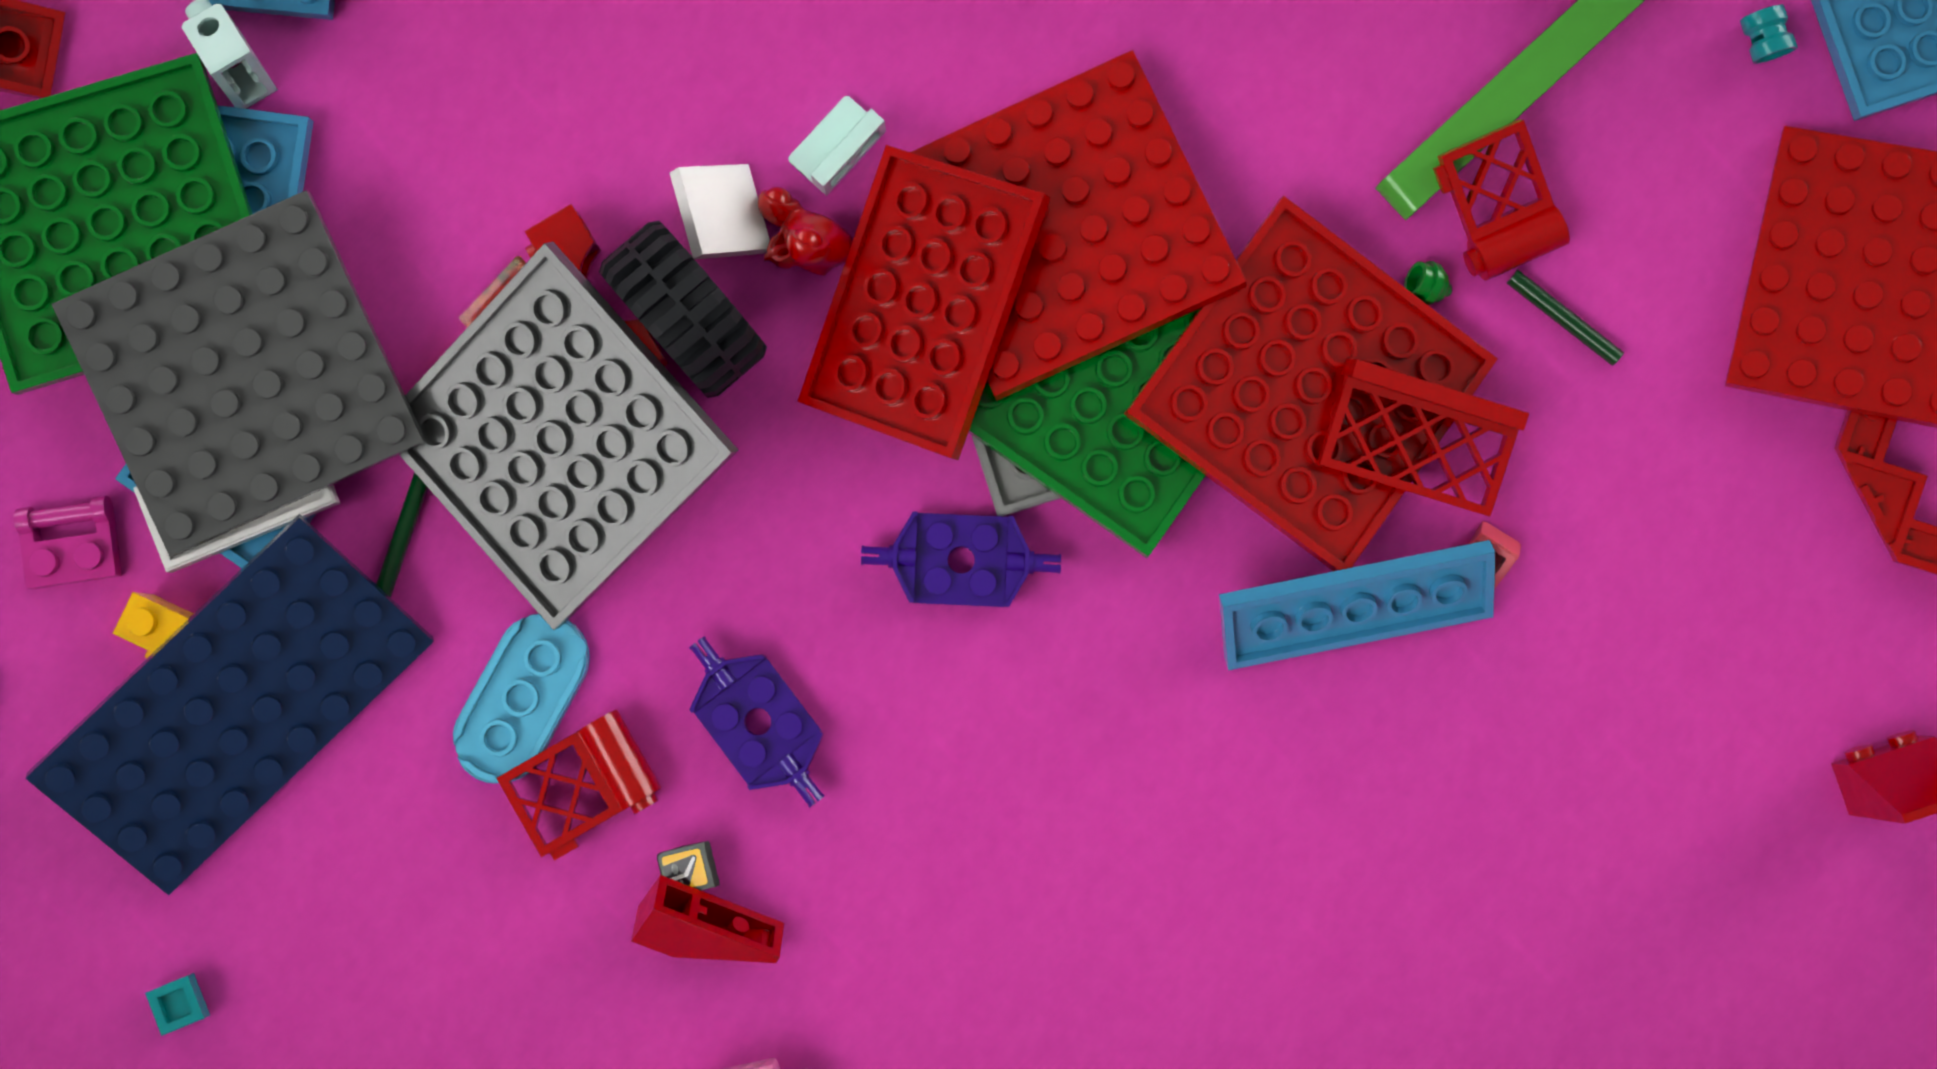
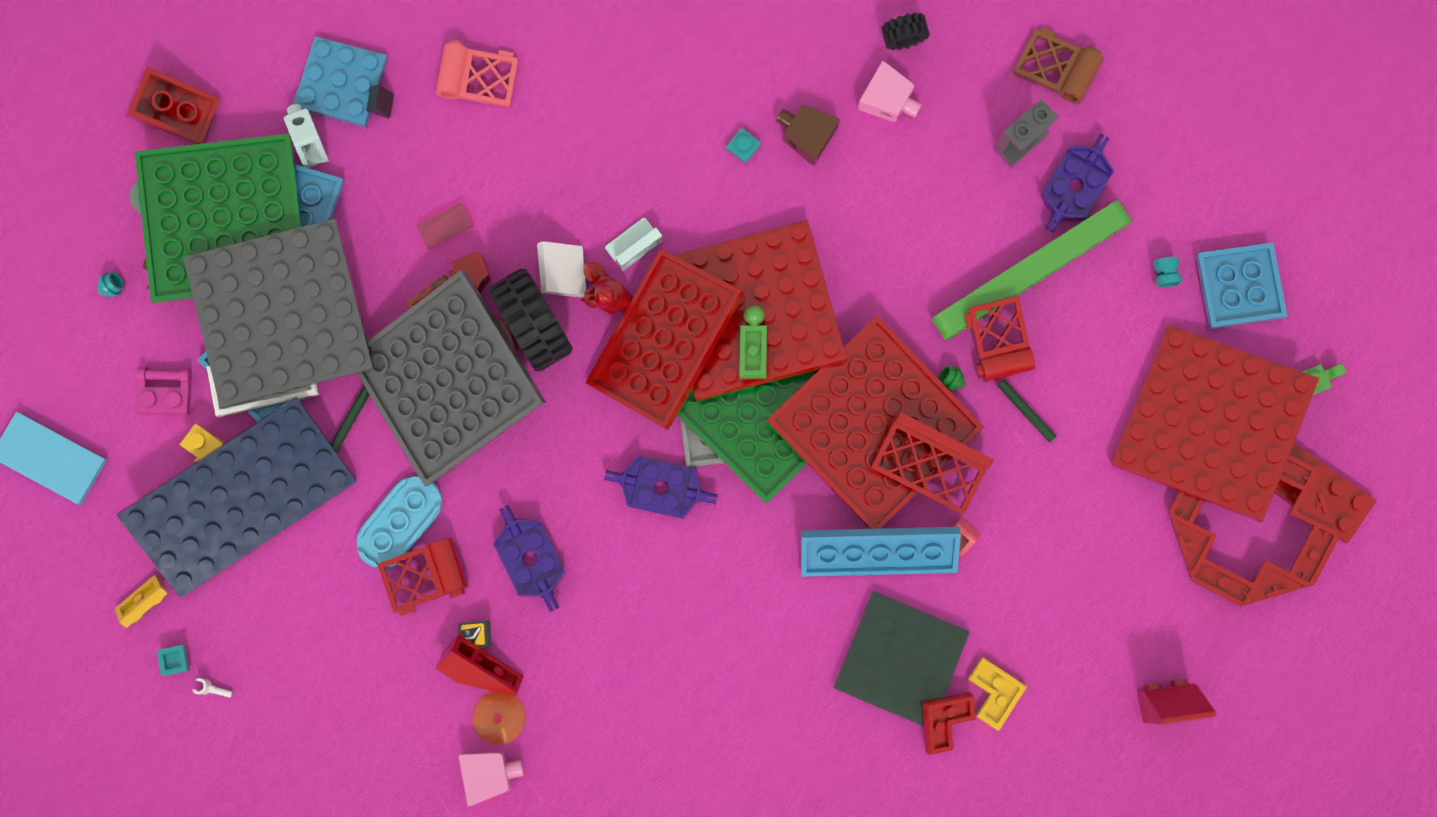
camera: 10 degrees right, 5 degrees down
(101, 913) = (140, 601): none -> yellow plate
(248, 1039) = (209, 688): none -> white hand
(502, 169) = (445, 226): none -> clear pink tile
(774, 987) = (511, 724): none -> dish
(1081, 285) = (753, 345): none -> bright green plate
(1423, 782) = (900, 658): none -> clear green plate
(1507, 869) = (940, 715): none -> red tile
(1605, 809) = (1002, 689): none -> yellow tile

